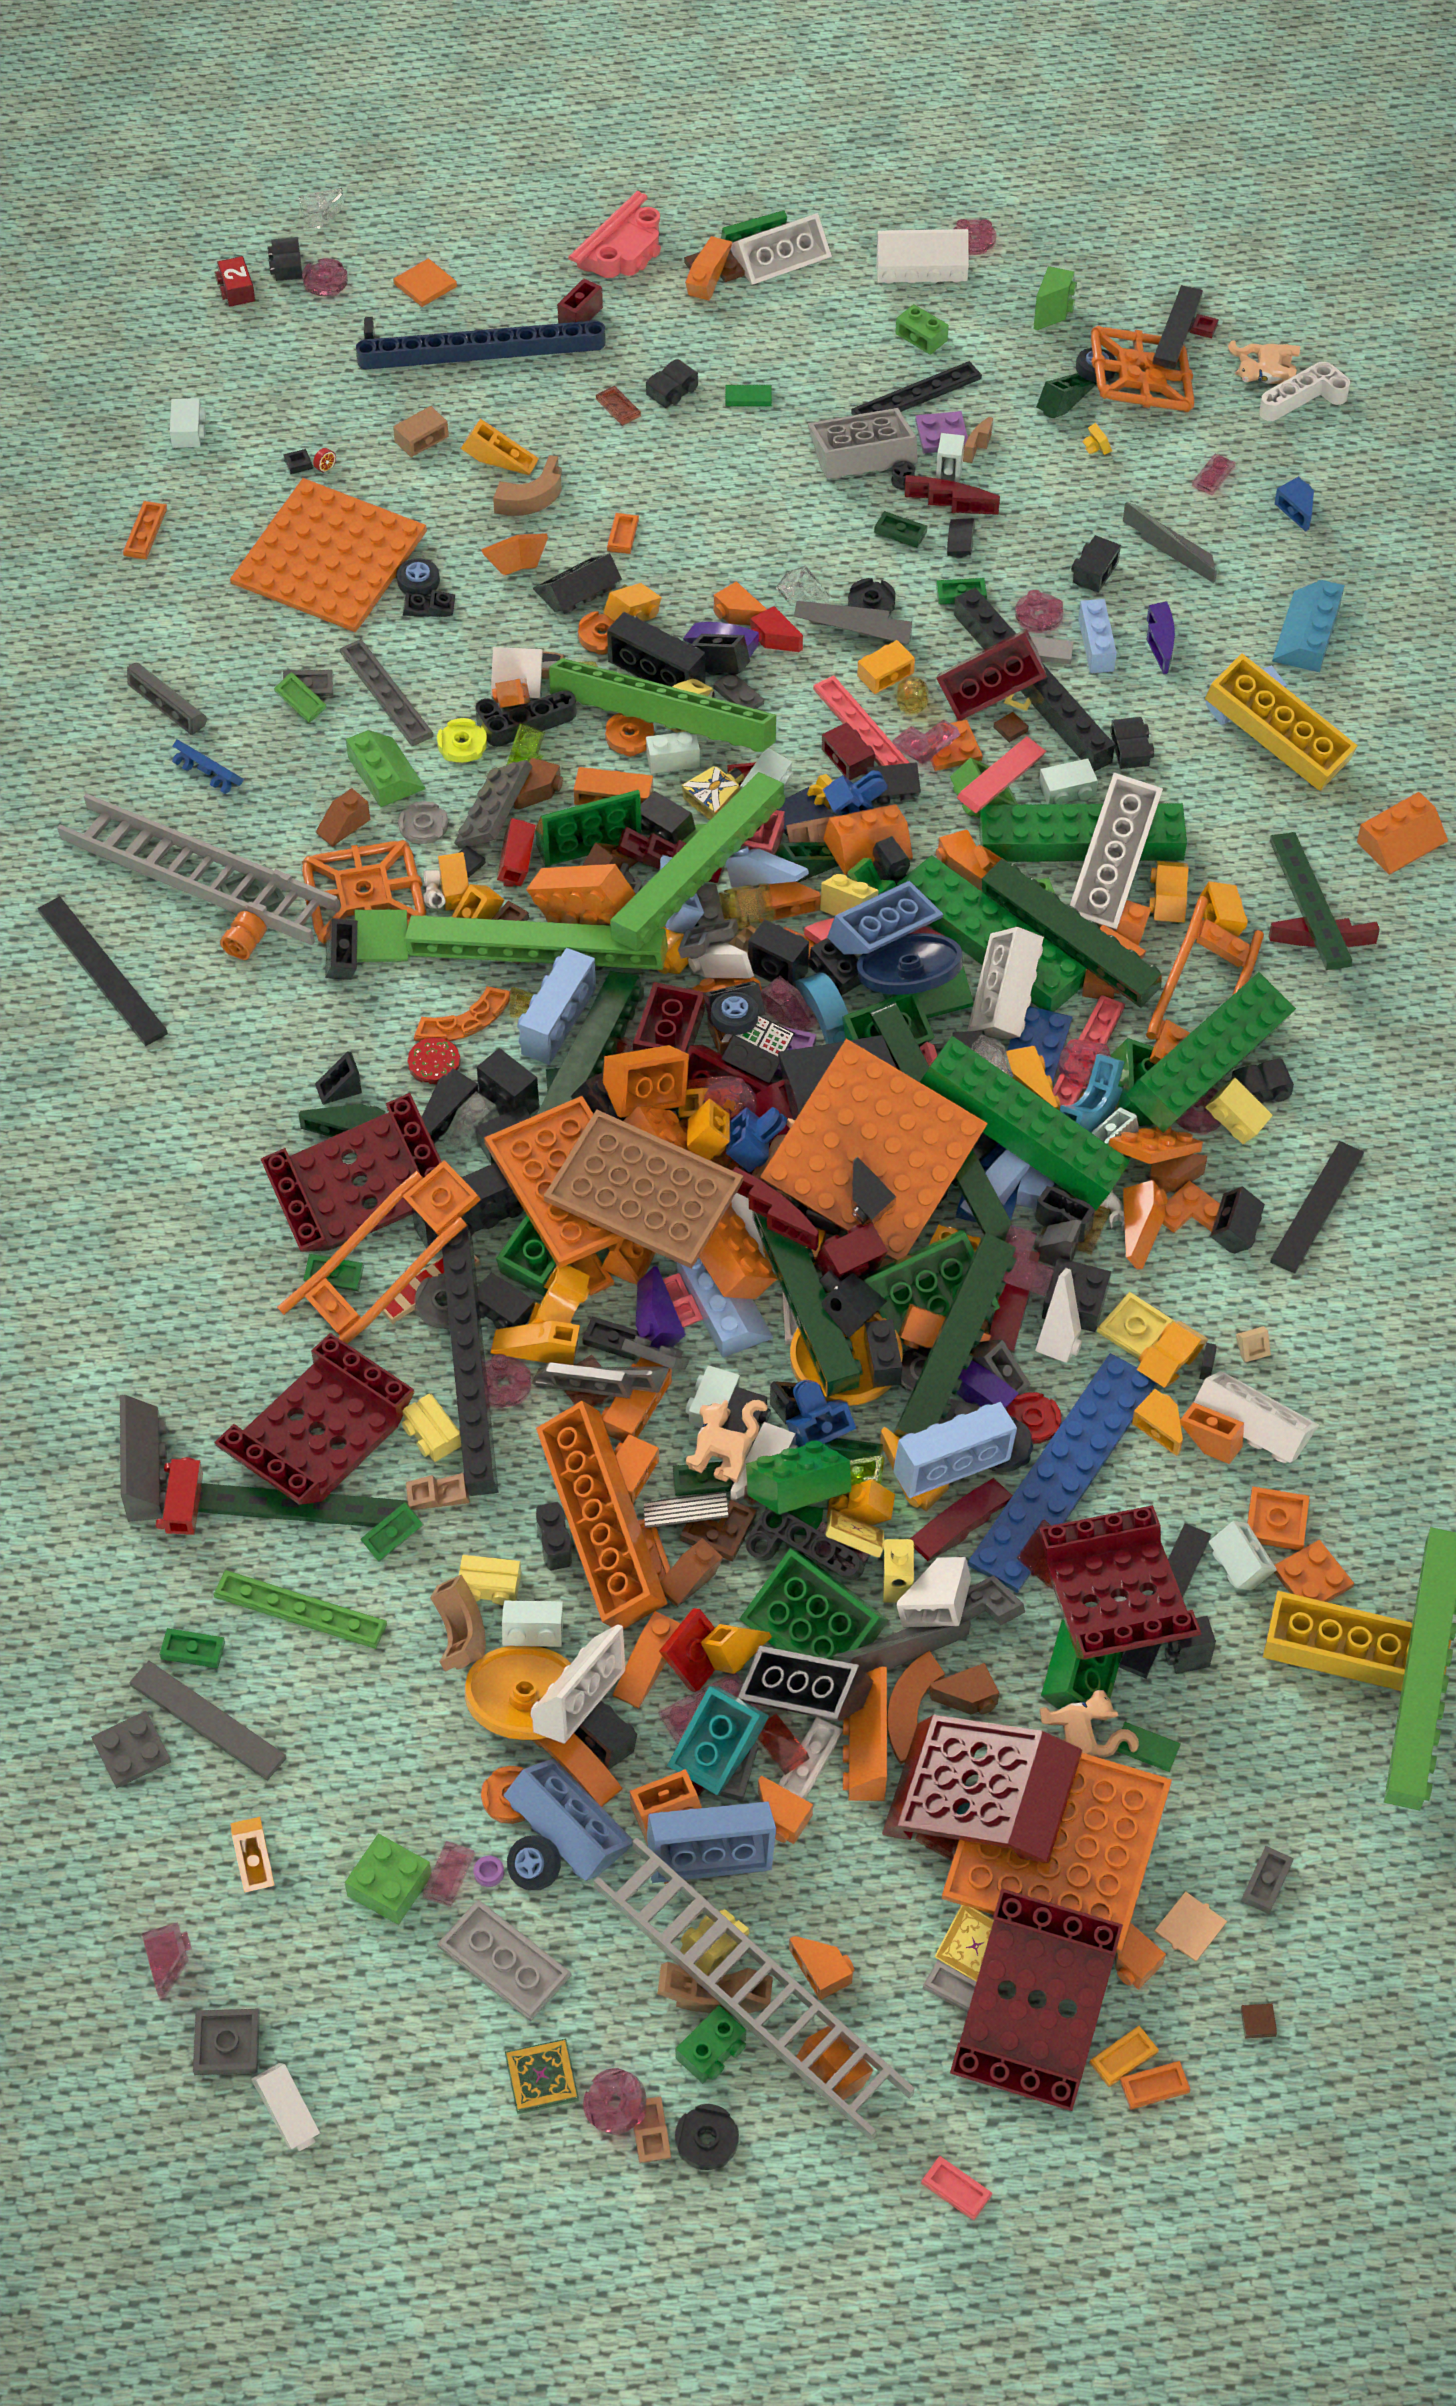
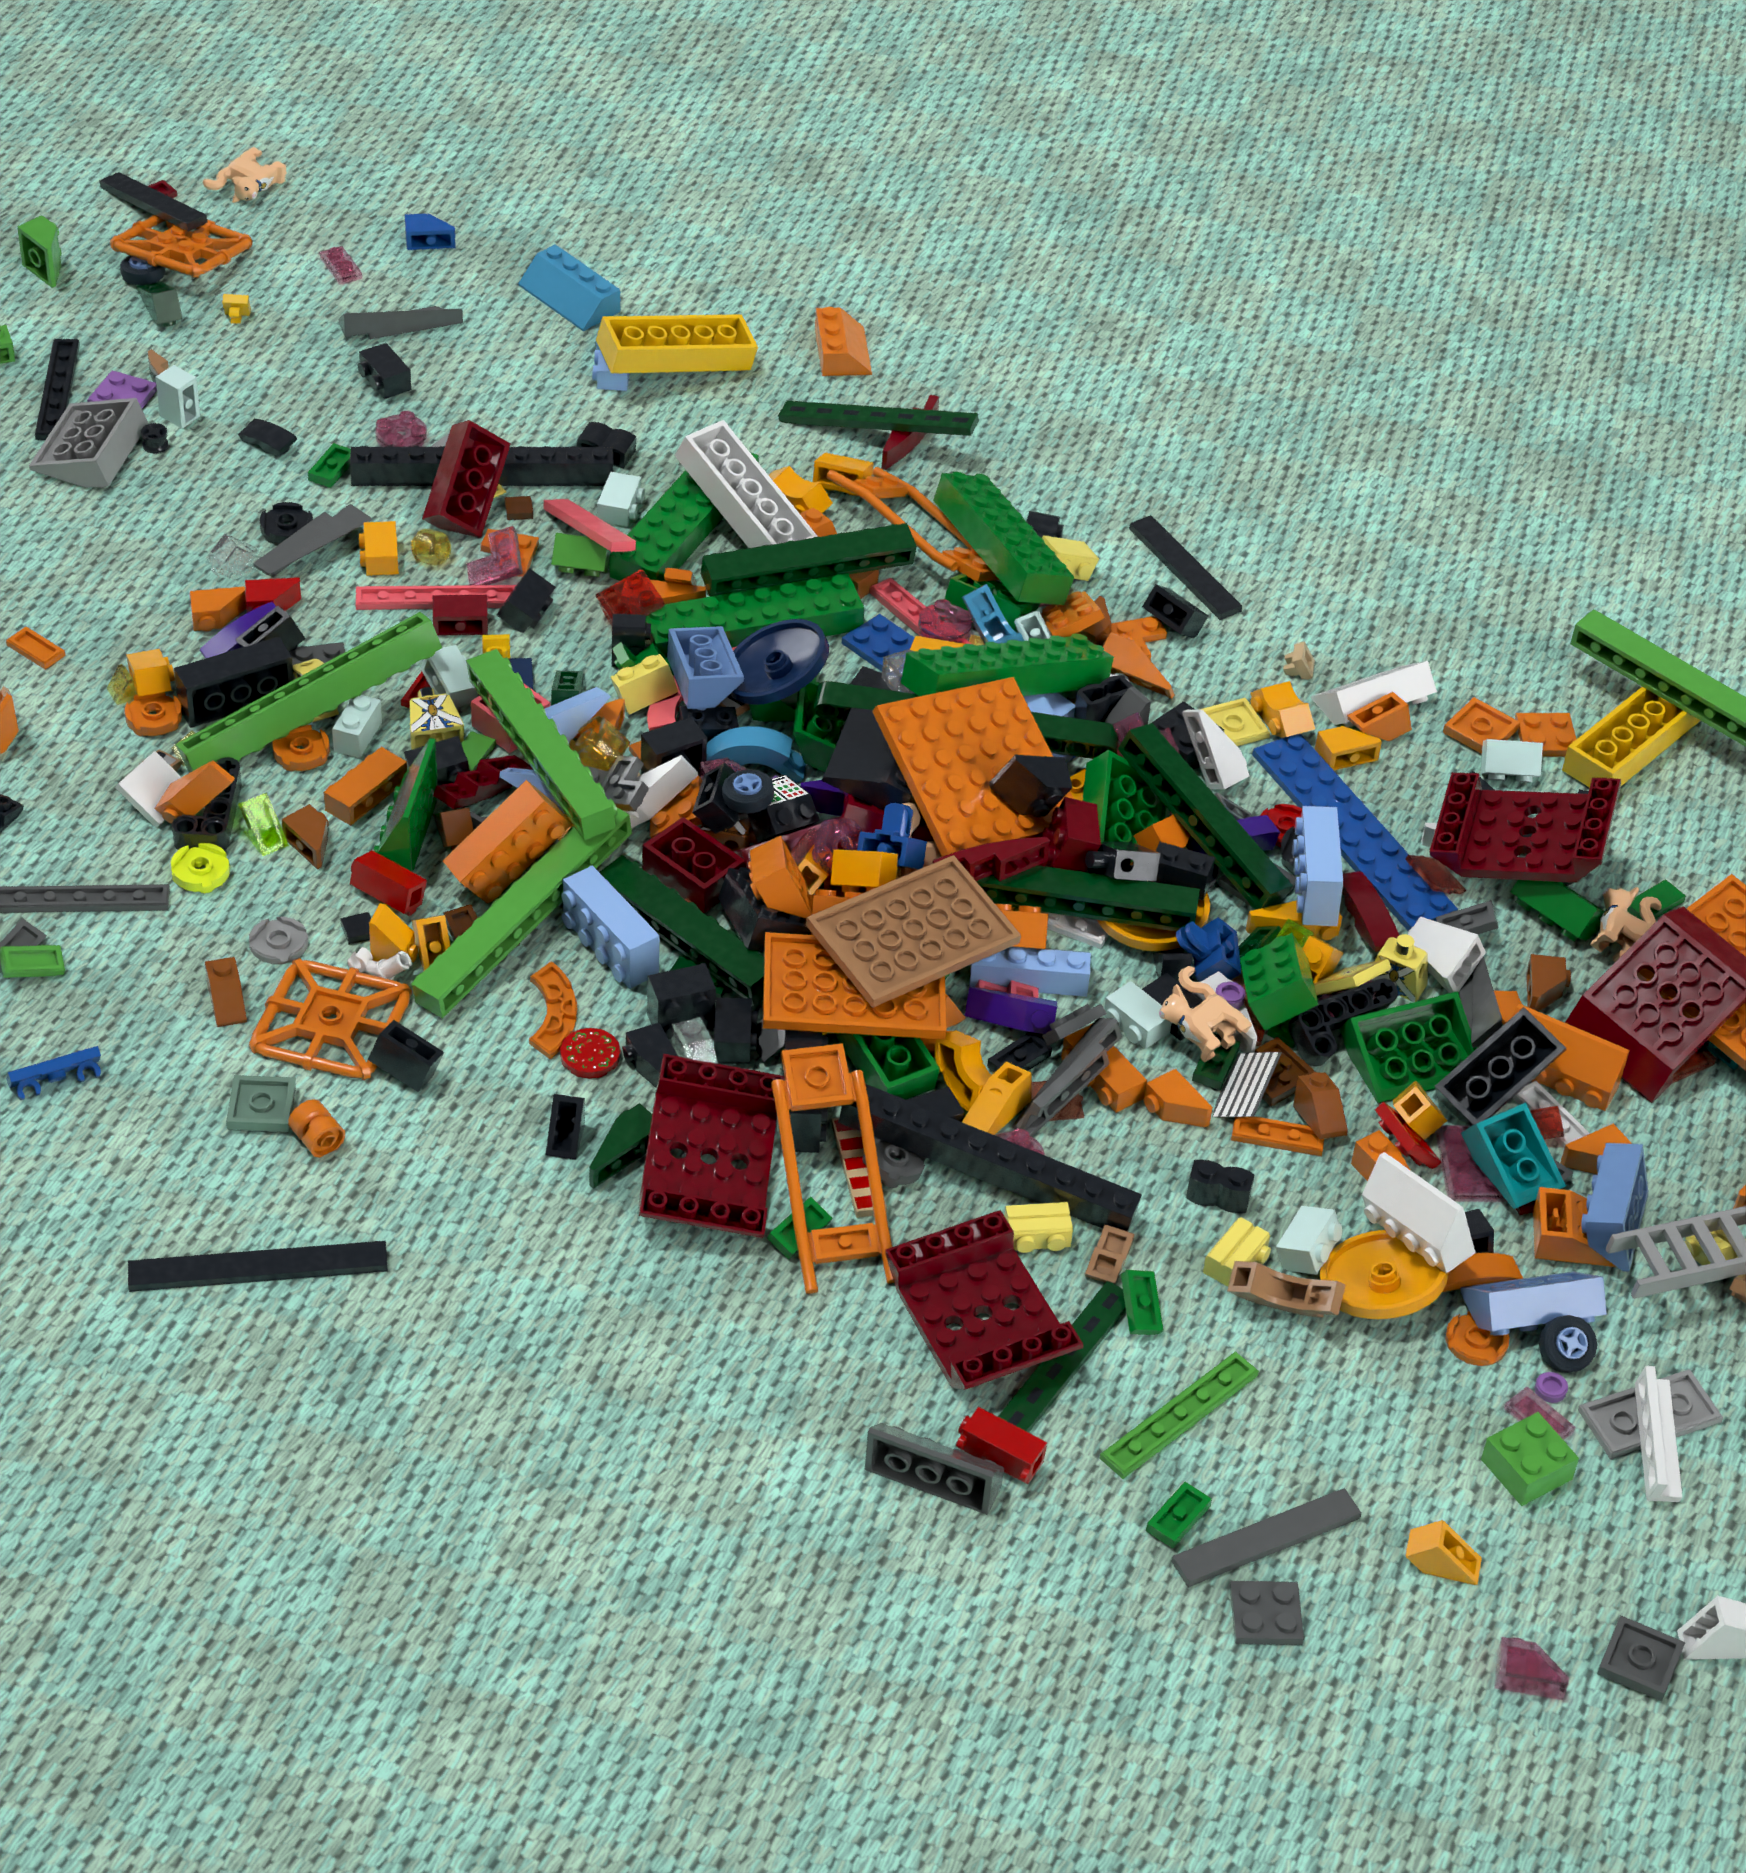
camera: 65 degrees left, 10 degrees down
(191, 845) = (207, 1146): light grey ladder -> none
(381, 935) = (409, 1013): bright green tile -> none
(382, 767) = (182, 940): bright green slope -> none
(466, 1969) = (1657, 1437): none -> white fence
(493, 804) = (312, 873): dark grey plate -> none
(519, 1002) = (572, 961): clear yellow slope -> none
(579, 583) = (74, 700): black slope -> none
(601, 1516) = (1232, 1135): orange brick -> none
(765, 1447) = (1232, 993): none -> medium lavender tile
(808, 830) = (539, 674): medium nougat slope -> none
(854, 797) = (532, 629): blue brick -> none
(855, 834) = (581, 643): orange slope -> none
(900, 529) = (219, 469): dark green plate -> none
(932, 843) = (630, 596): none -> clear red bracket
(950, 493) = (218, 415): dark red slope -> none
(1006, 983) = (850, 636): white slope -> none
(1097, 636) = (459, 404): light blue brick -> none
(1161, 634) = (503, 373): dark purple slope -> none
(1208, 1361) = (1305, 692): black tile -> none
(1314, 381) = (300, 157): white beam -> none

